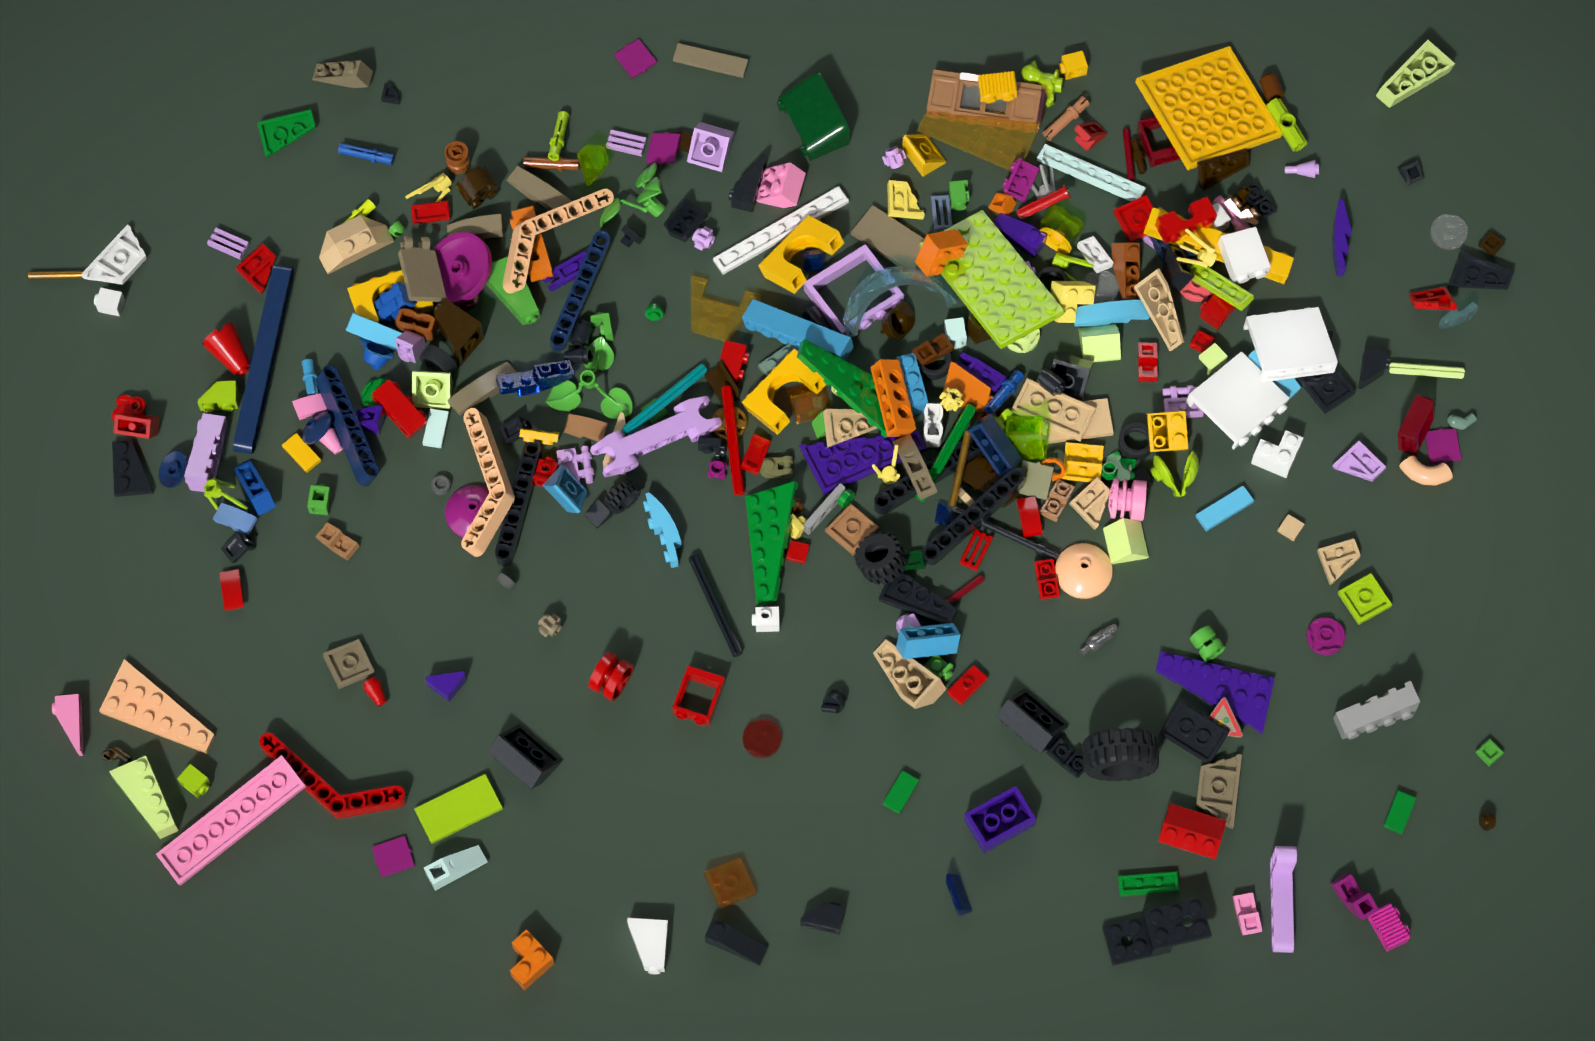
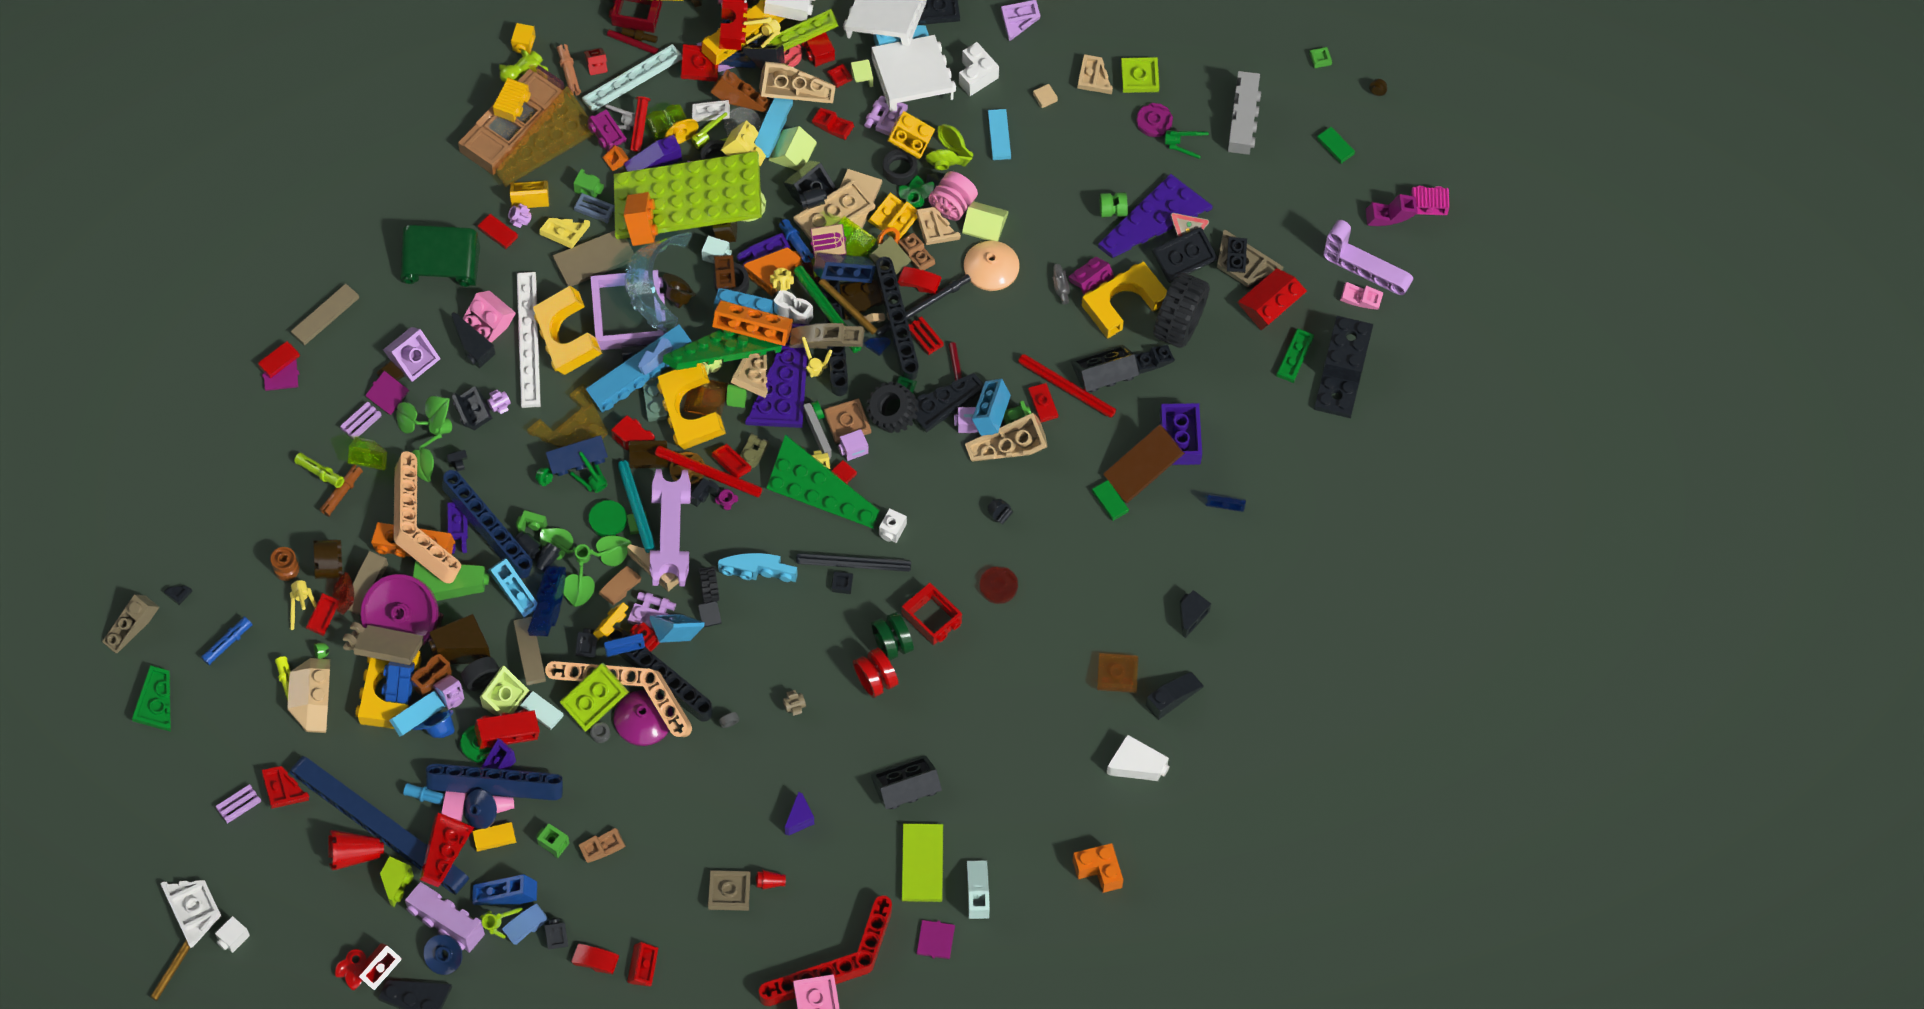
camera: 65 degrees left, 5 degrees down
(247, 631) = (642, 964): none -> red slope
(269, 416) = (443, 848): none -> red wing
(456, 216) = (344, 592): none -> clear red slope
(463, 460) = (594, 697): none -> lime tile
(521, 458) = (624, 645): none -> blue tile
(535, 342) = (513, 587): none -> medium azure slope
(537, 189) = (362, 513): dark tan slope -> none
(644, 384) = (608, 518): none -> green tile
(645, 48) = (278, 359): none -> red tile
(653, 672) = (892, 635): none -> dark green wheel
(672, 356) = (596, 481): none -> green plant
(686, 326) = (568, 456): none -> dark blue brick
(690, 606) = (842, 582): none -> black tile
(799, 332) = (653, 360): none -> medium blue slope
(813, 260) = (575, 326): clear blue tile -> none
(828, 546) = (853, 445): none -> lavender brick
(871, 149) = (497, 231): none -> red tile
(948, 801) = (1143, 463): none -> reddish brown tile
(996, 697) = (1067, 386): none -> red axle
(1013, 417) = (829, 240): none -> piece
(1046, 579) = (982, 296): red slope -> none
(1098, 681) = (1137, 280): none -> yellow arch
(1122, 662) = (1092, 275): none -> magenta bracket
(1218, 778) = (1236, 254): none -> black slope
(1315, 663) = (1174, 138): none -> green plant

